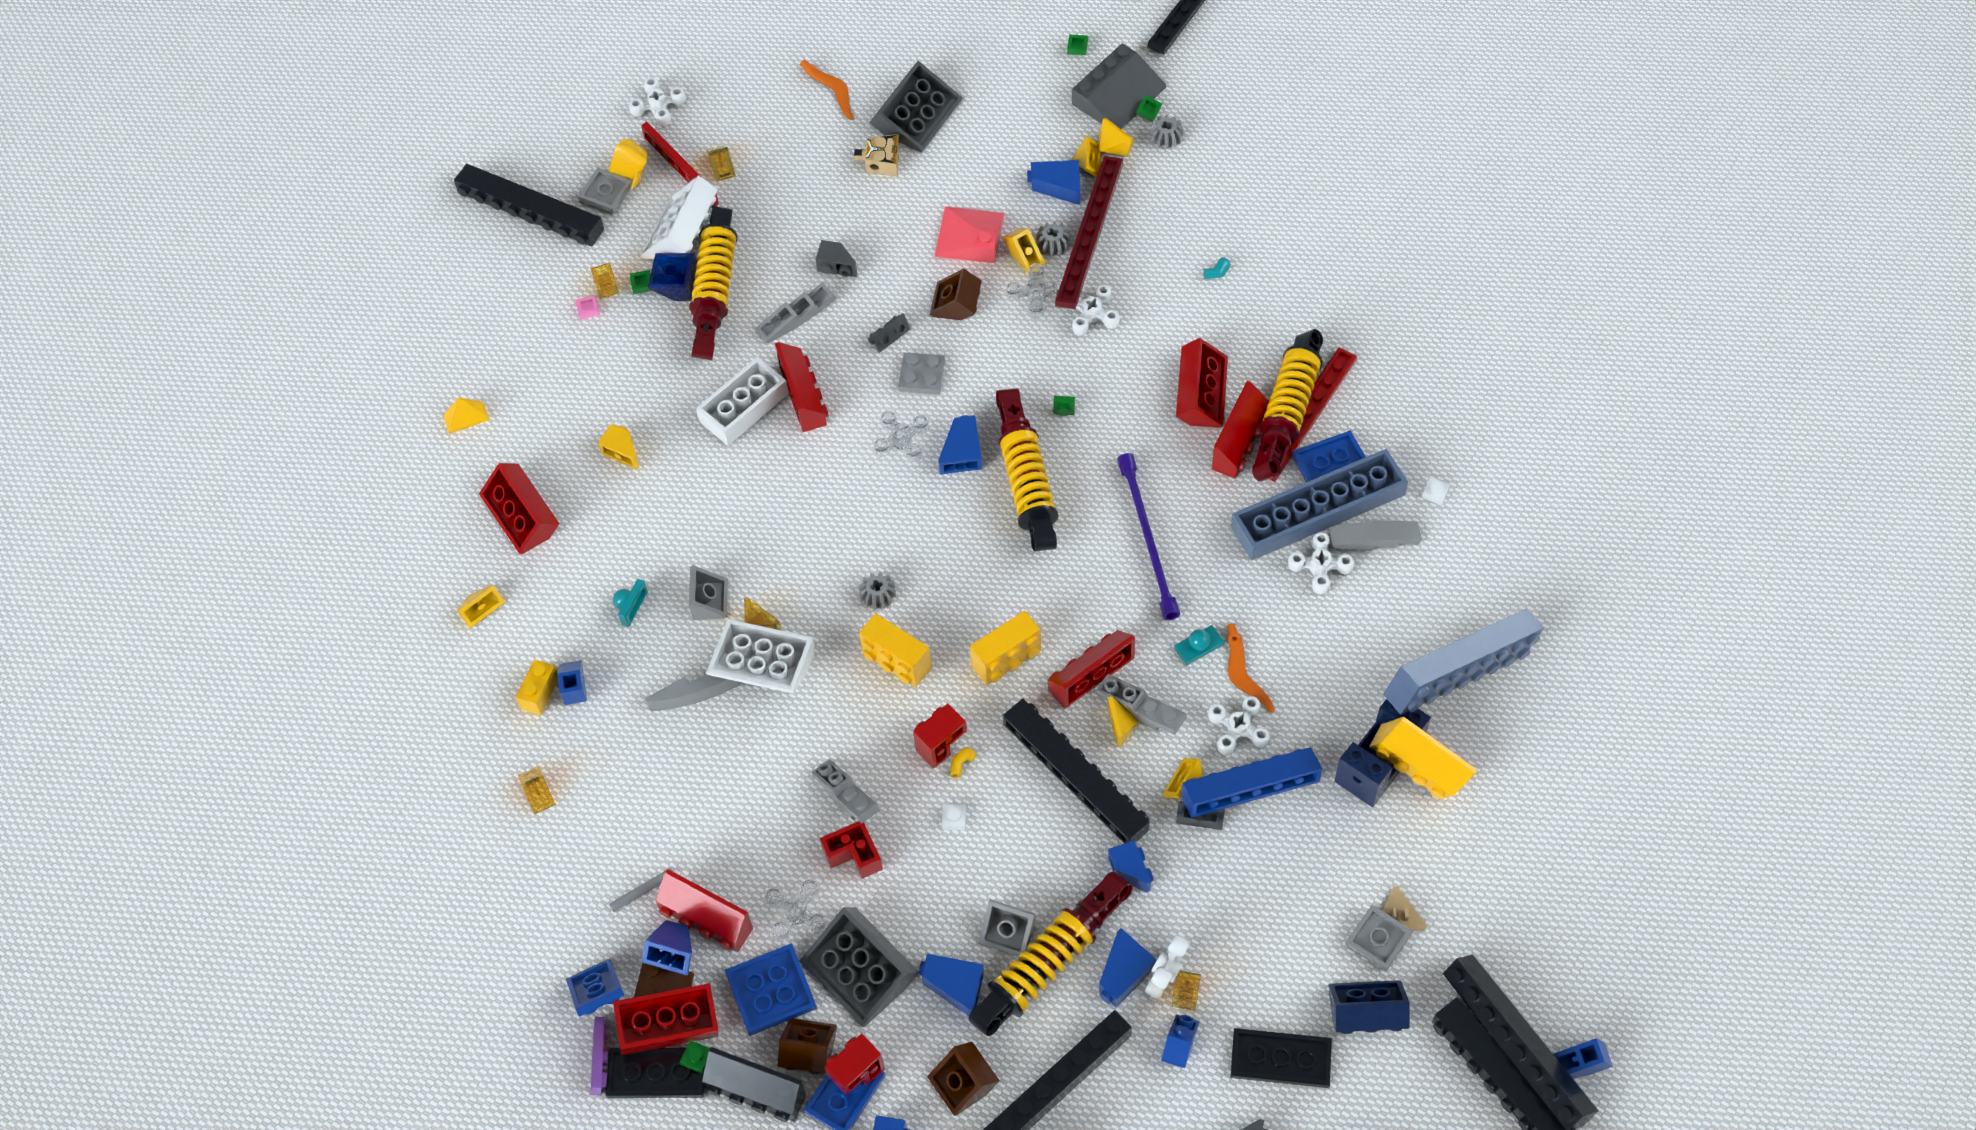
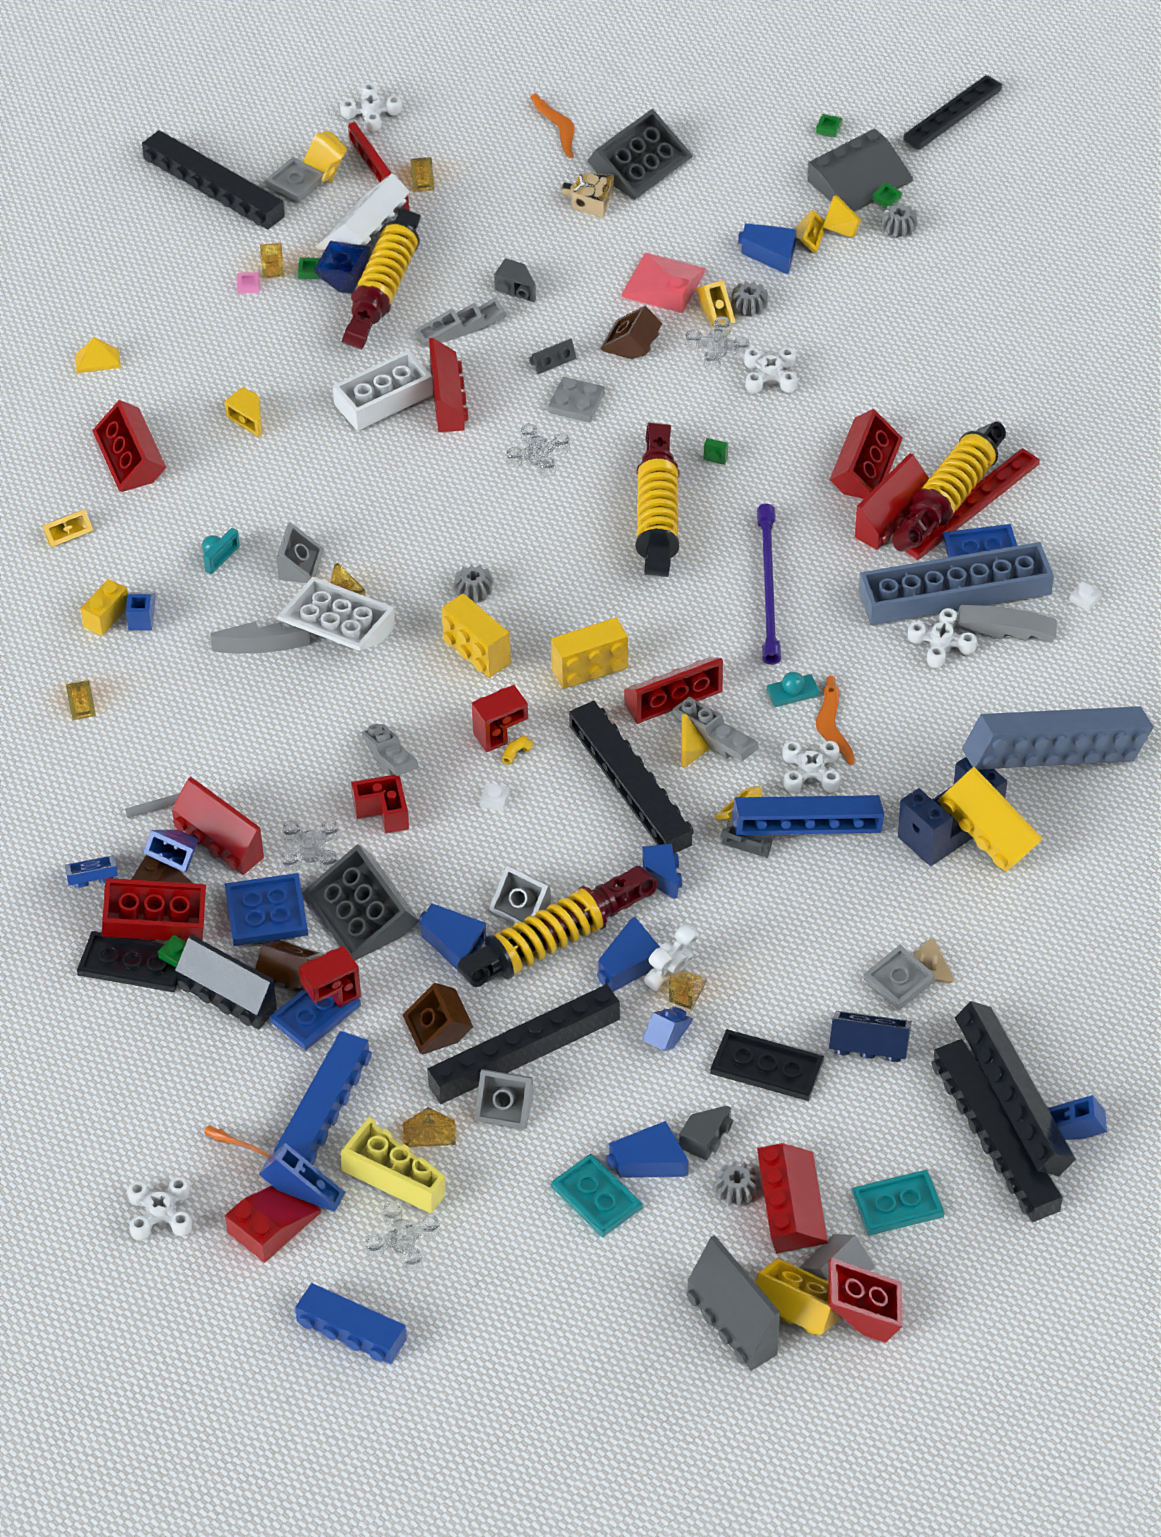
camera: 10 degrees right, 10 degrees down
(599, 1055) = (79, 934): medium lavender plate -> none
(961, 447) = (596, 471): blue slope -> none
(1089, 233) = (788, 297): dark red plate -> none
(1219, 270) = (916, 357): teal arm -> none

